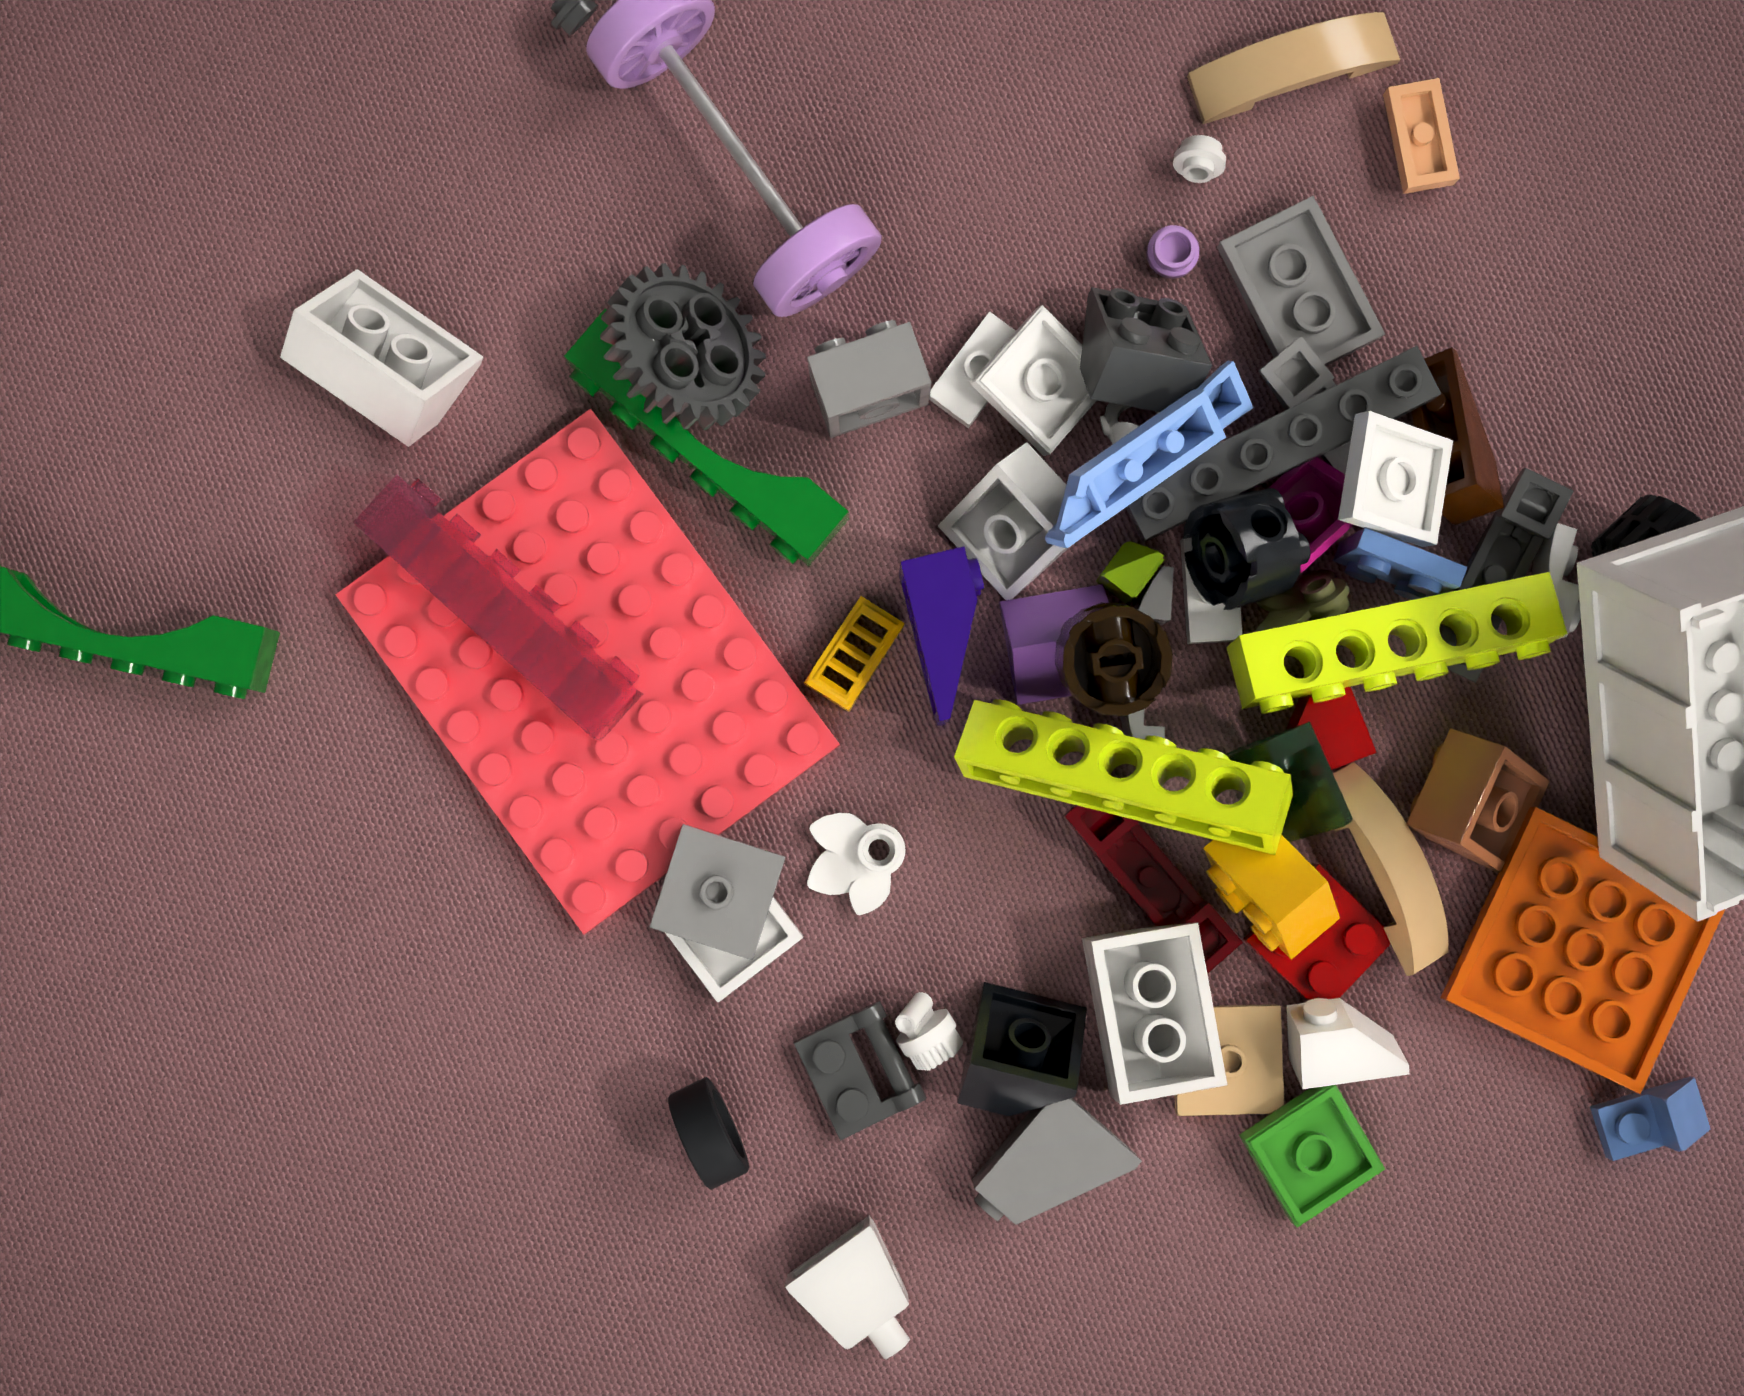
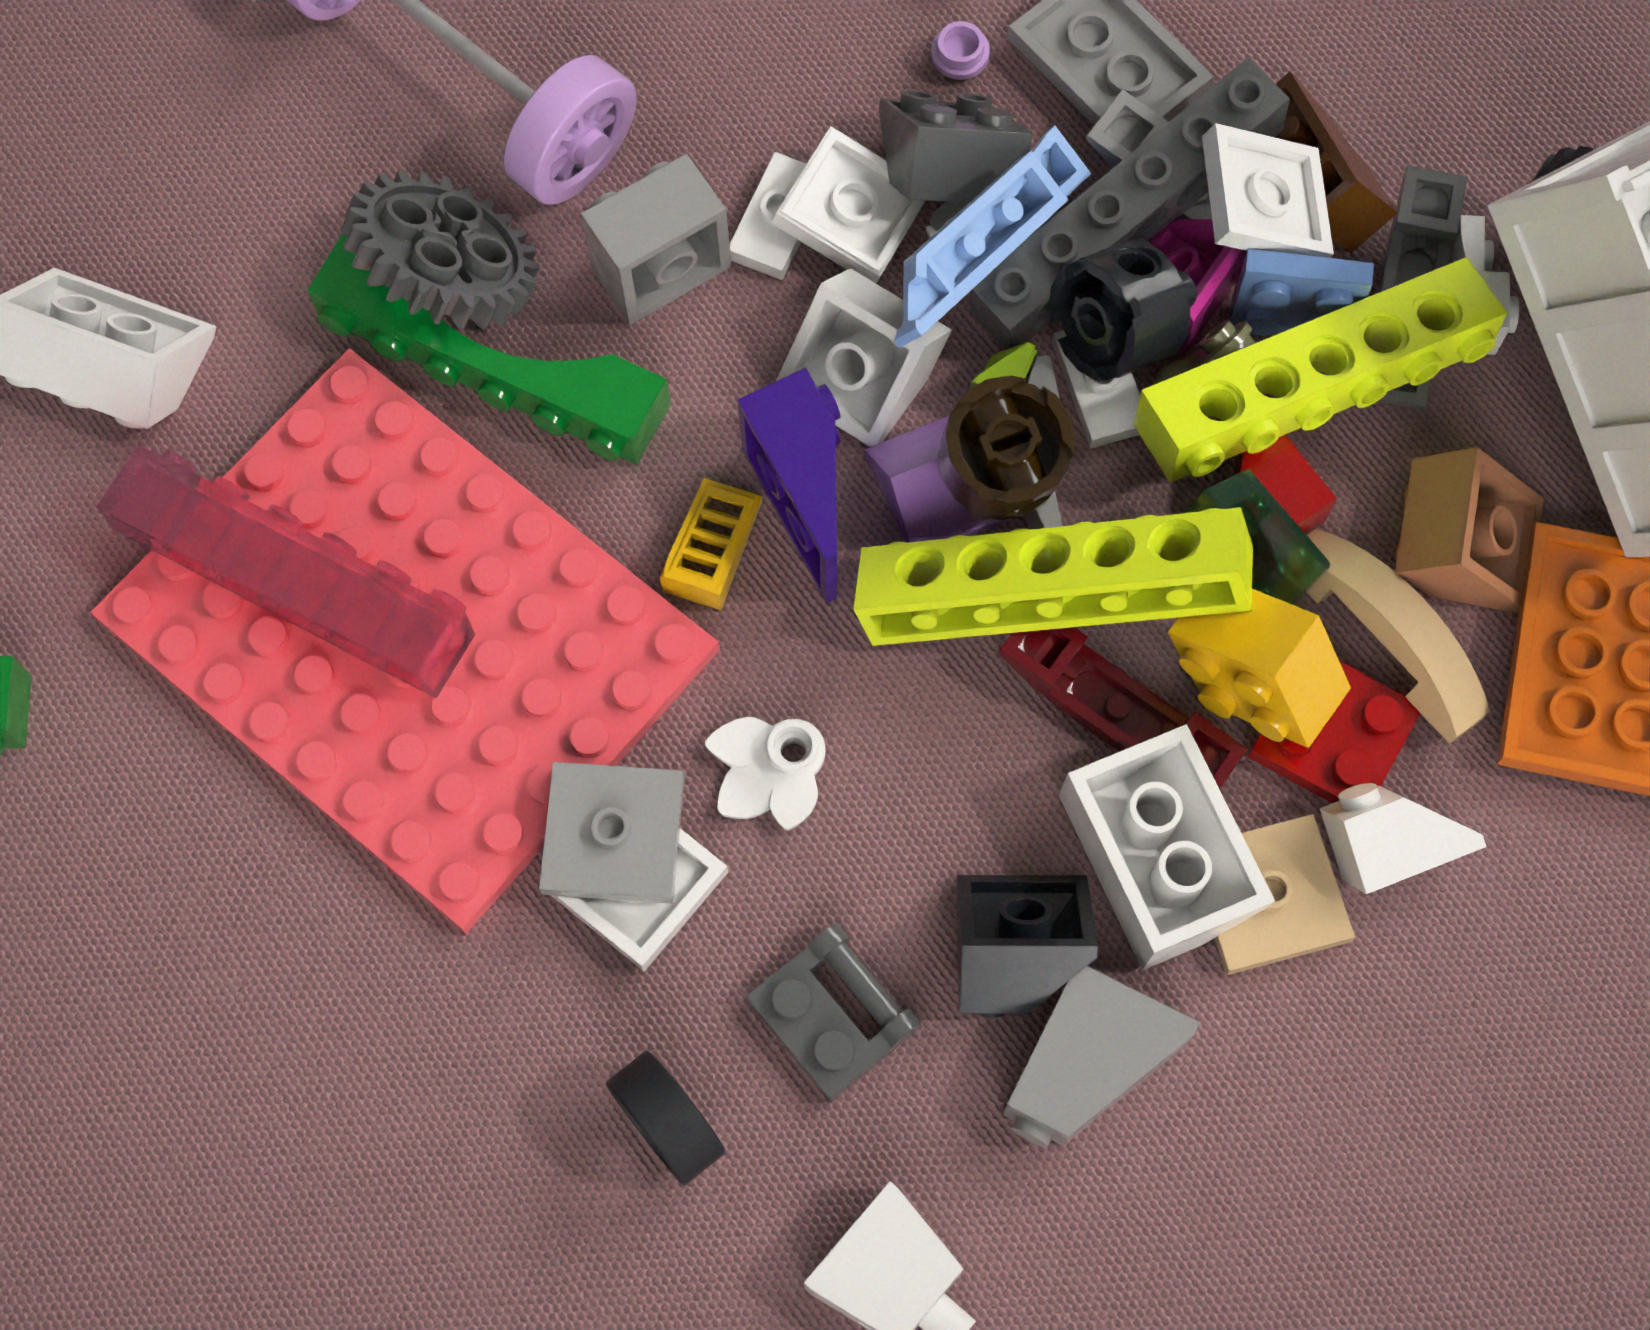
camera: 10 degrees left, 15 degrees down
(927, 1034) = (906, 947): white piece -> none
(1312, 1152) = (1401, 974): bright green plate -> none

